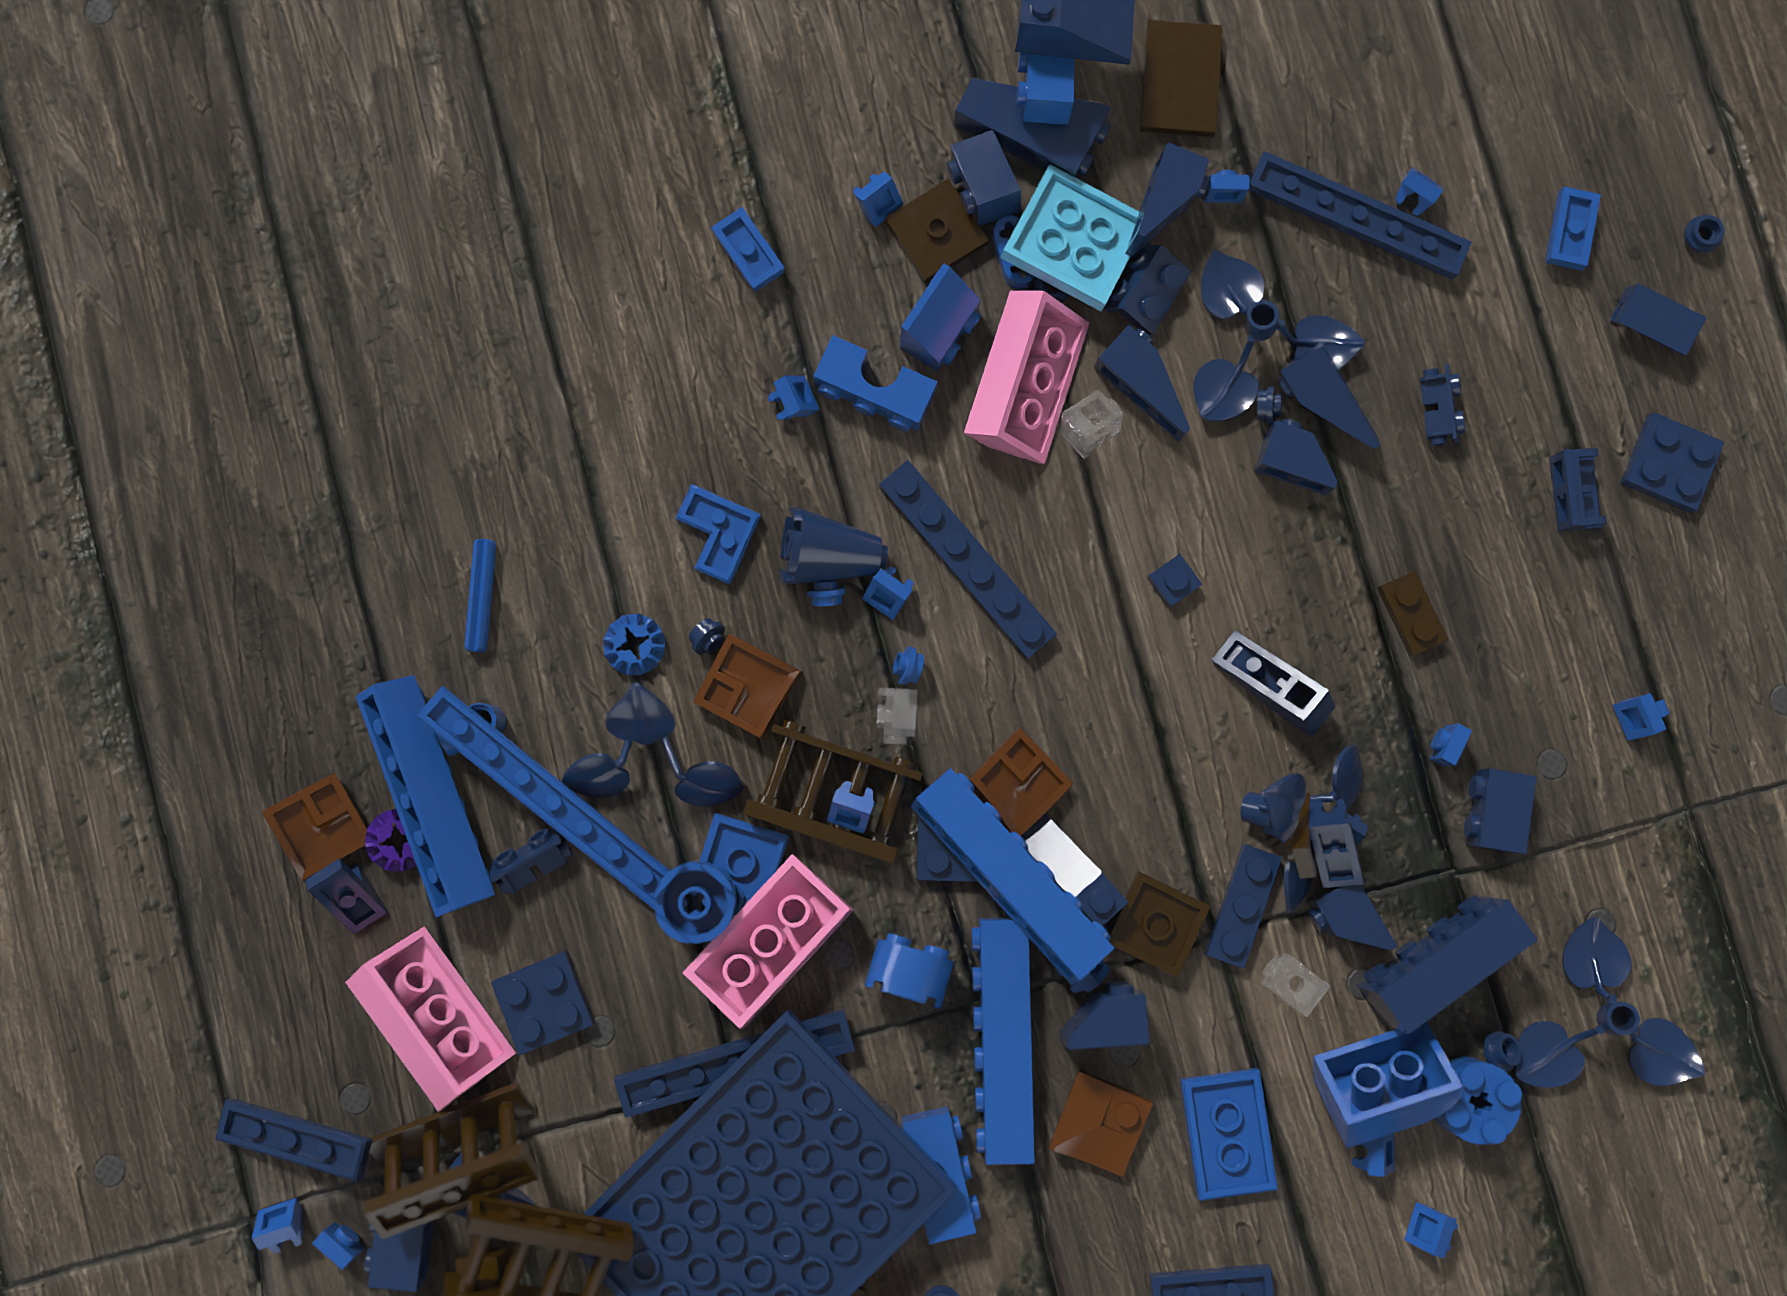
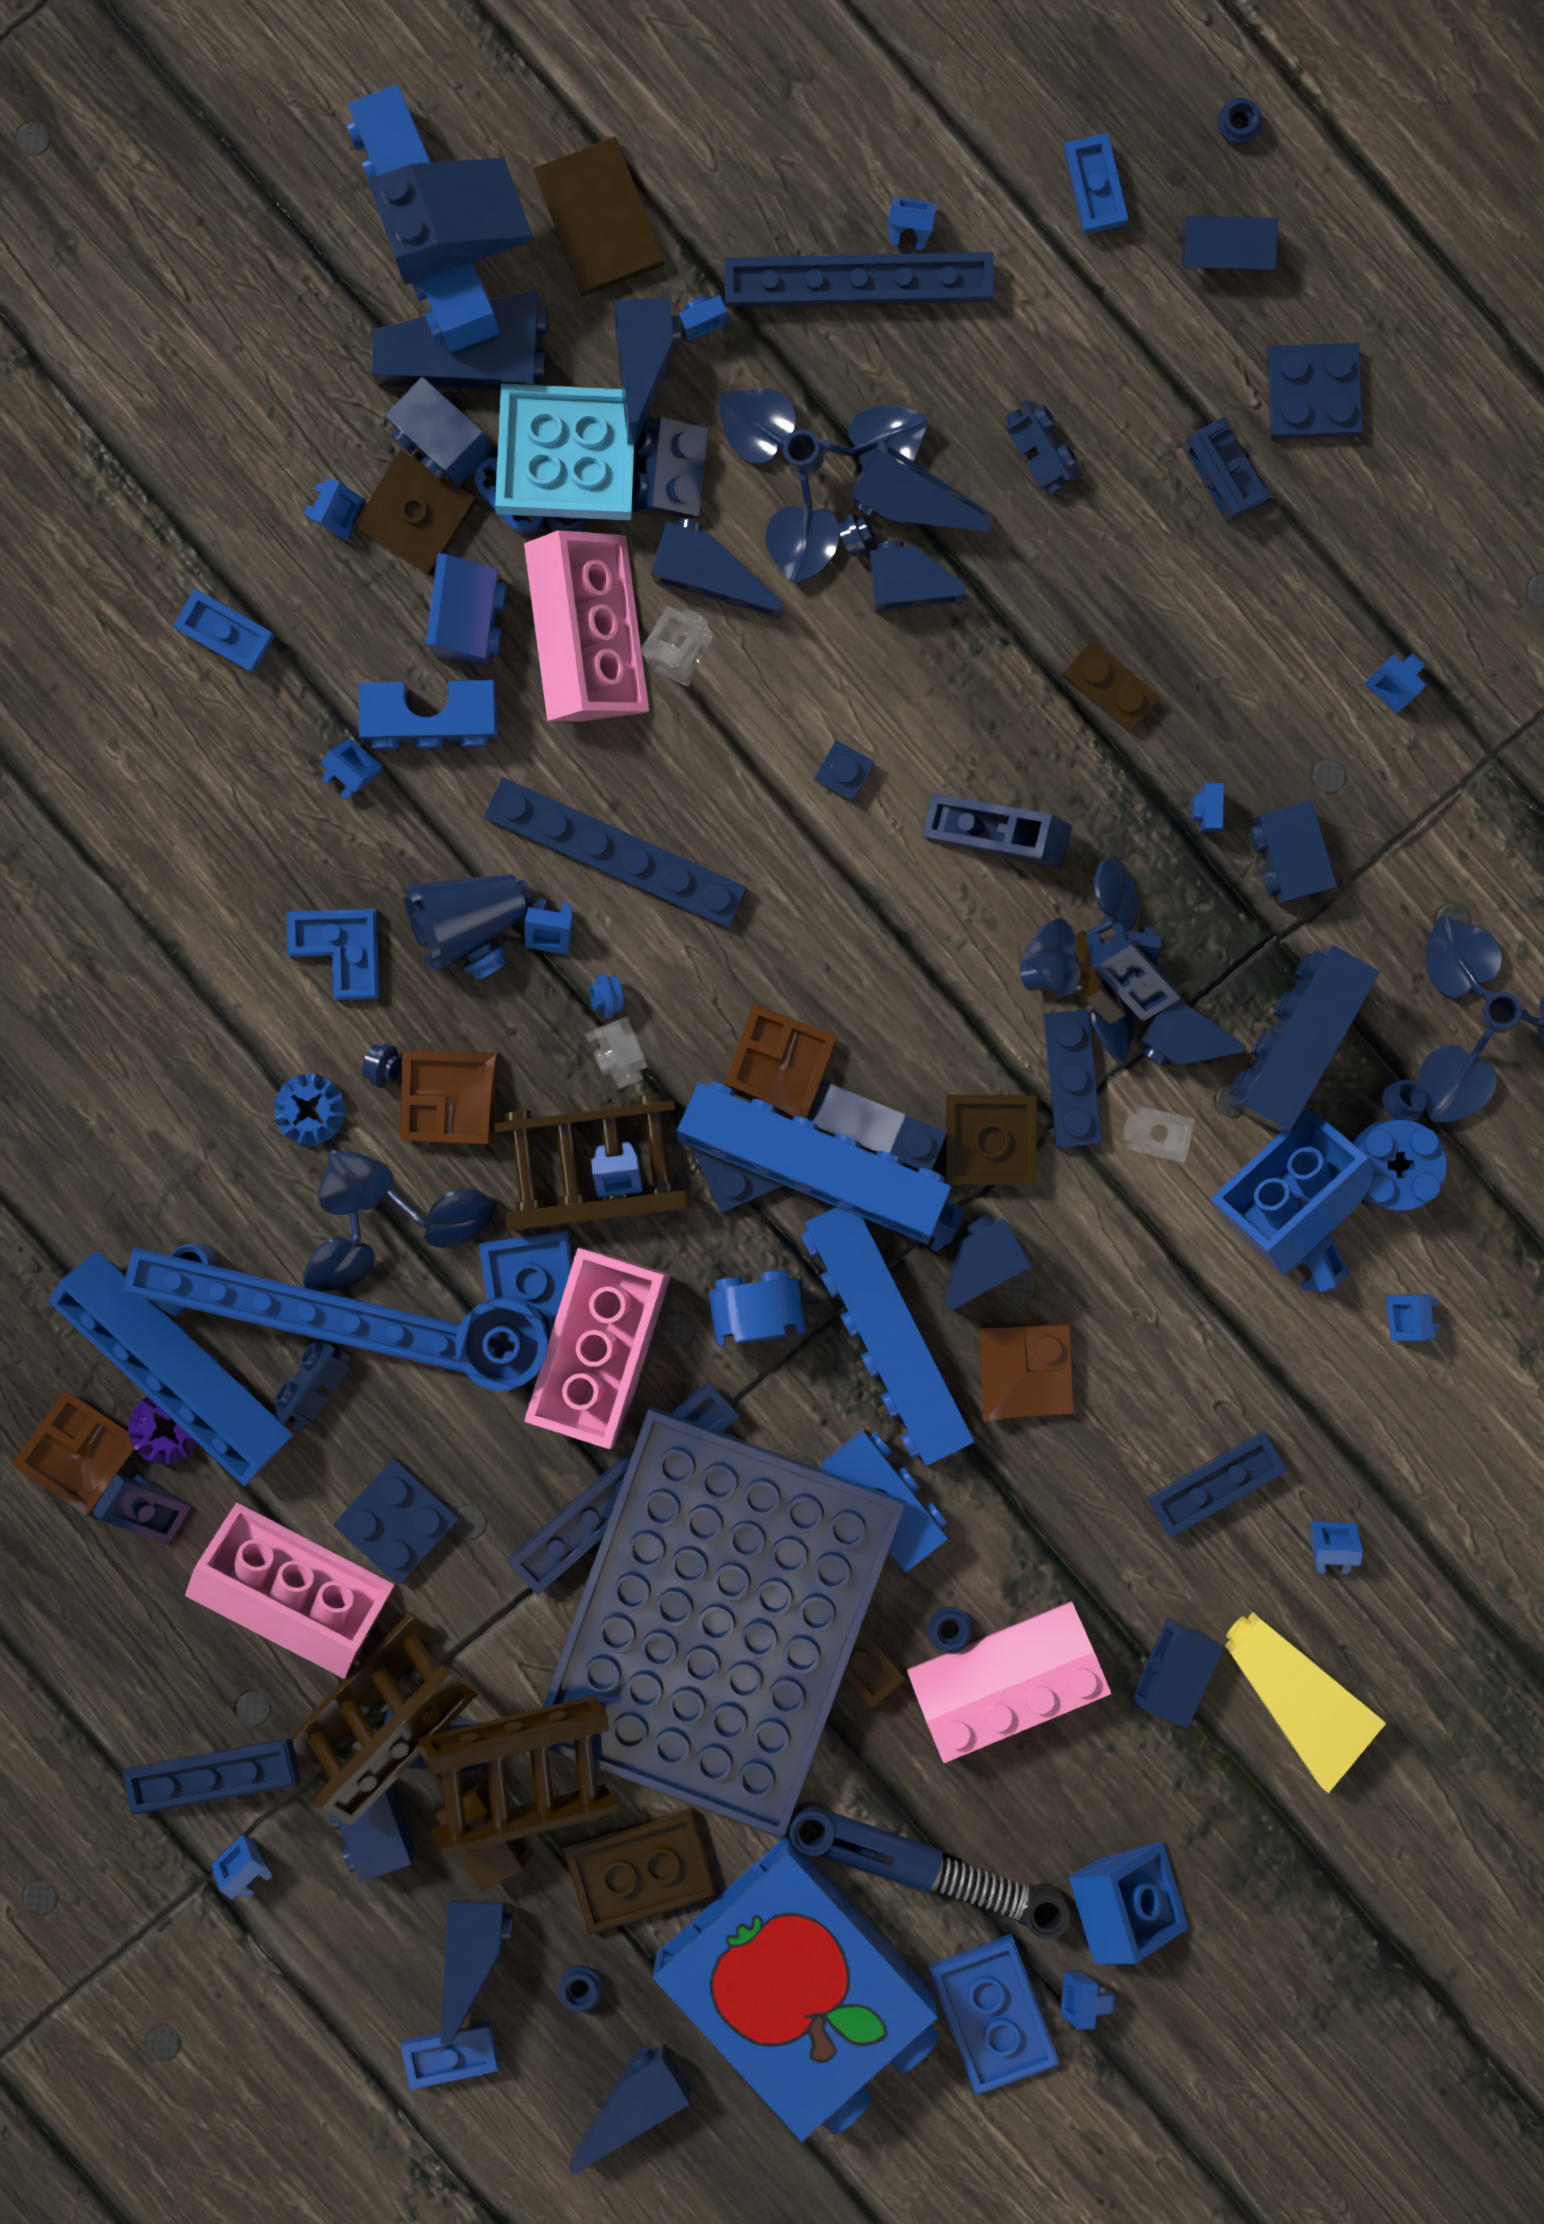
camera: 25 degrees left, 5 degrees up
(339, 1244) = (310, 1856): blue plate -> none
(480, 595) = (123, 1135): blue axle -> none
(1228, 1134) = (1163, 1319): blue tile -> none

